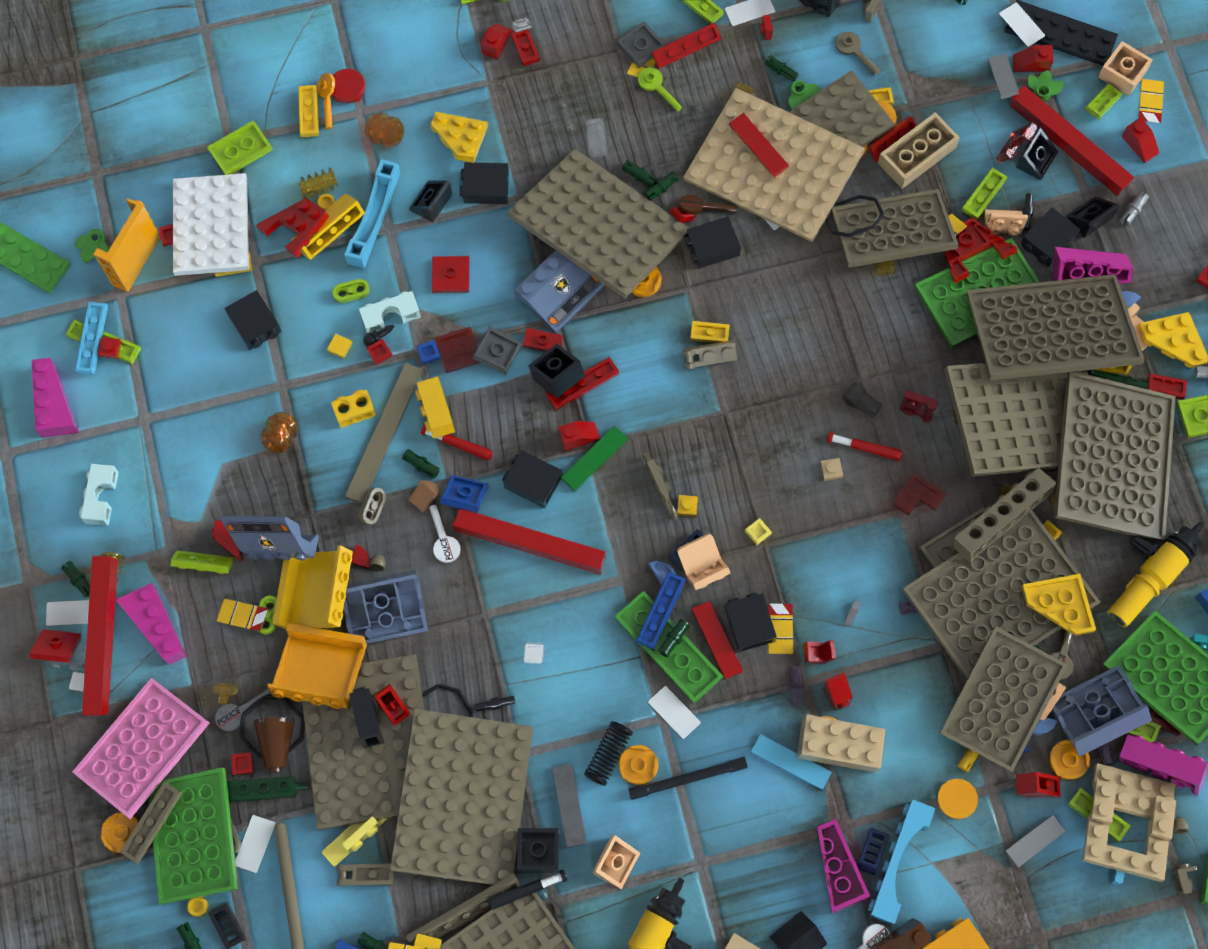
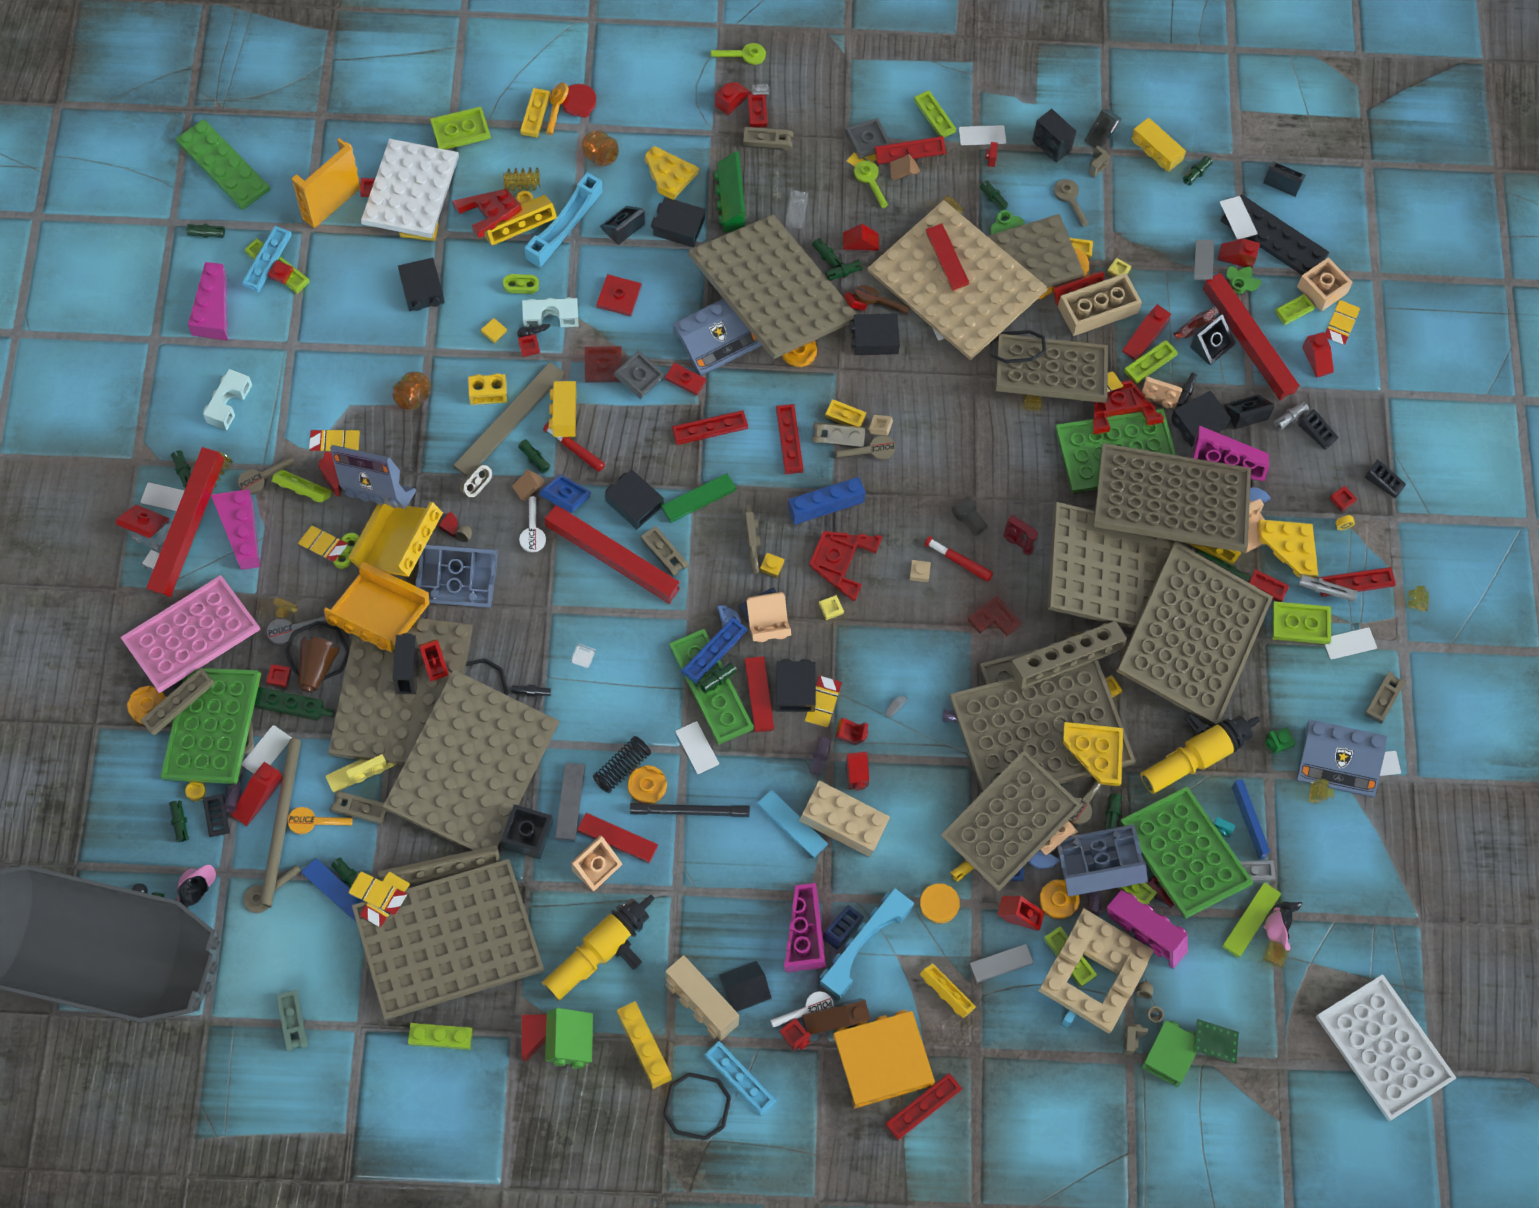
camera: 10 degrees right, 5 degrees down
(20, 326) = (205, 230): none -> dark green pin
(89, 246) = (289, 172): bright green plate -> none
(152, 570) = (255, 480): none -> dark tan piece
(218, 504) = (323, 439): none -> yellow sticker
(236, 899) = (232, 793): none -> clear purple pin
(259, 892) = (257, 793): none -> red slope
(314, 903) = (303, 820): none -> light orange piece
(428, 352) = (574, 358): blue plate -> none
(517, 893) = (501, 863): black piece -> none
(527, 140) = (730, 192): none -> green slope
(544, 72) = (768, 138): none -> dark tan plate
(556, 370) = (688, 407): black brick -> none
(577, 434) = (689, 471): red slope -> none
(578, 522) = (664, 550): none -> dark tan plate
(627, 827) = (618, 837): none -> red tile
(663, 372) = (789, 439): none -> red tile
(667, 149) = (861, 238): none -> red slope
(685, 65) = (903, 167): none -> medium nougat tile
(719, 425) = (826, 500): none -> blue brick
(745, 479) = (835, 555): none -> red wing
(747, 333) = (880, 425): none -> tan plate
(754, 355) = (880, 448): none -> dark tan piece
(924, 108) = (1118, 268): none -> light yellow tile
(972, 165) = (1147, 332): none -> red slope
(994, 885) = (947, 990): none -> yellow plate
(1092, 657) = (1113, 811): none -> dark green axle
(1161, 220) = (1322, 425): none -> black slope
(1200, 850) = (1155, 1019): none -> dark tan hinge

